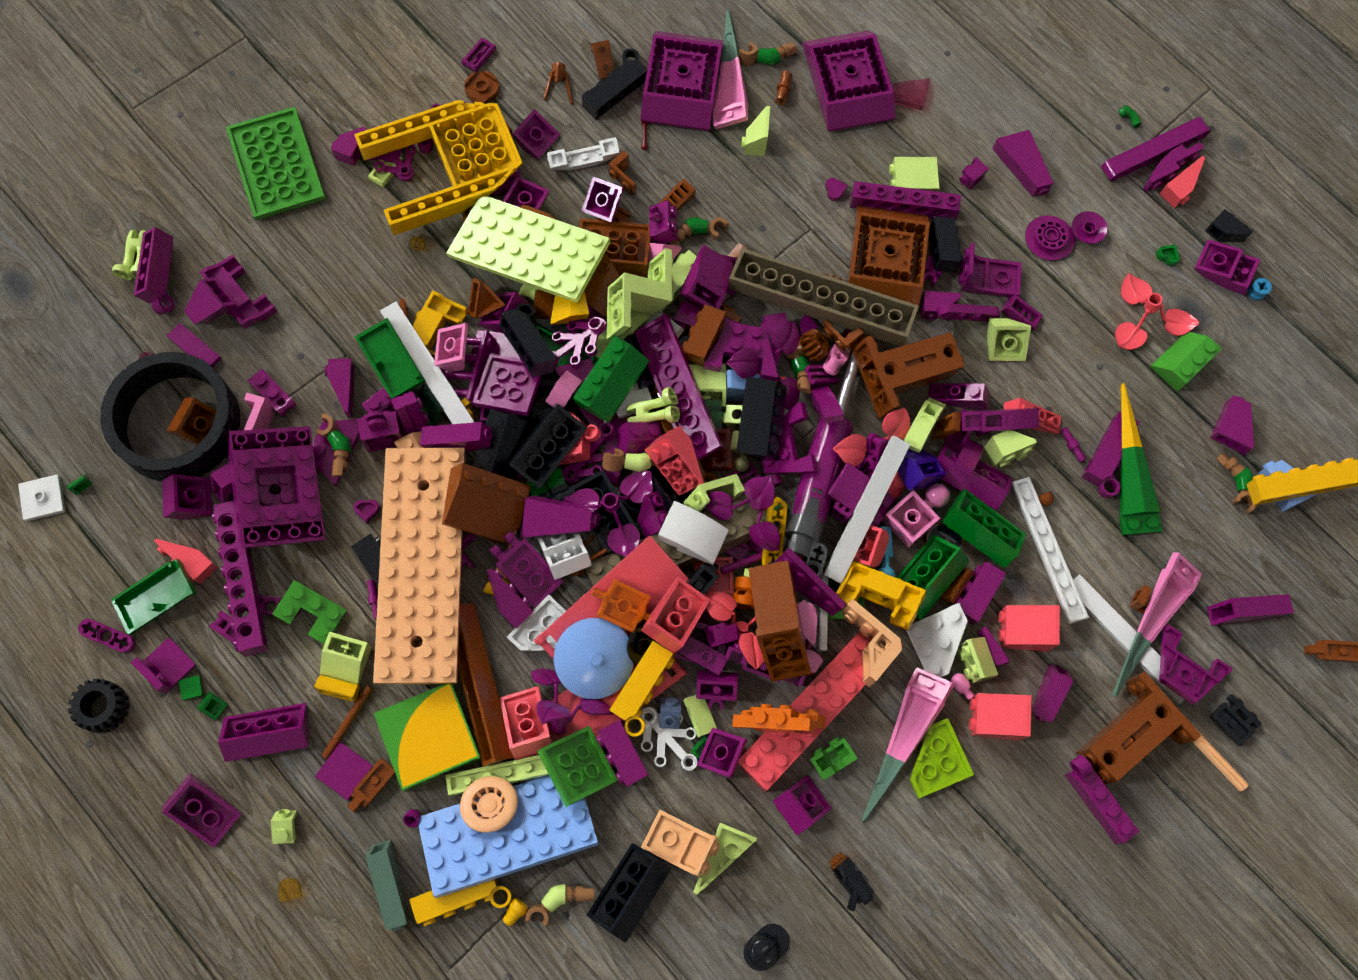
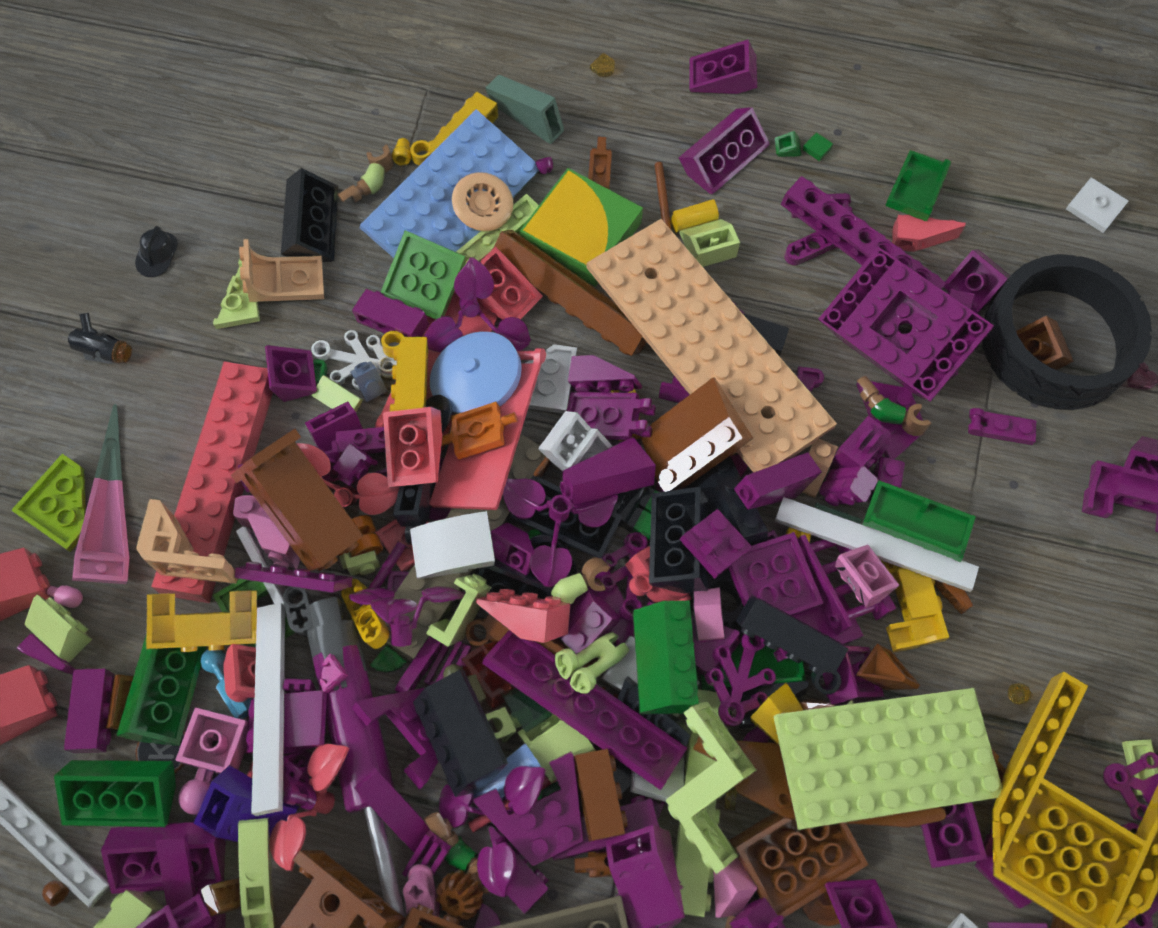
camera: 150 degrees right, 5 degrees down
(79, 484) = (1080, 234): green slope -> none
(84, 699) = (881, 74): black tyre -> none
(101, 630) = (932, 133): magenta beam -> none
(165, 666) = (855, 142): magenta bracket -> none
(193, 345) = (1119, 420): magenta tile -> none
(261, 412) = (984, 381): bright pink panel -> none
(283, 826) = (648, 98): yellowish green bracket -> none
(299, 597) = (793, 262): bright green plate -> none
(341, 376) = (947, 480): magenta slope -> none
(343, 771) = (632, 165): magenta tile -> none
(529, 418) = (715, 543): none -> magenta hinge
(779, 719) = (243, 415): orange bracket -> none
(802, 805) = (183, 379): magenta slope -> none
(818, 499) = (331, 673): none -> dark pink tile
(833, 758) = (175, 436): bright green cylinder -> none
(939, 639) = (112, 626): white plate -> none

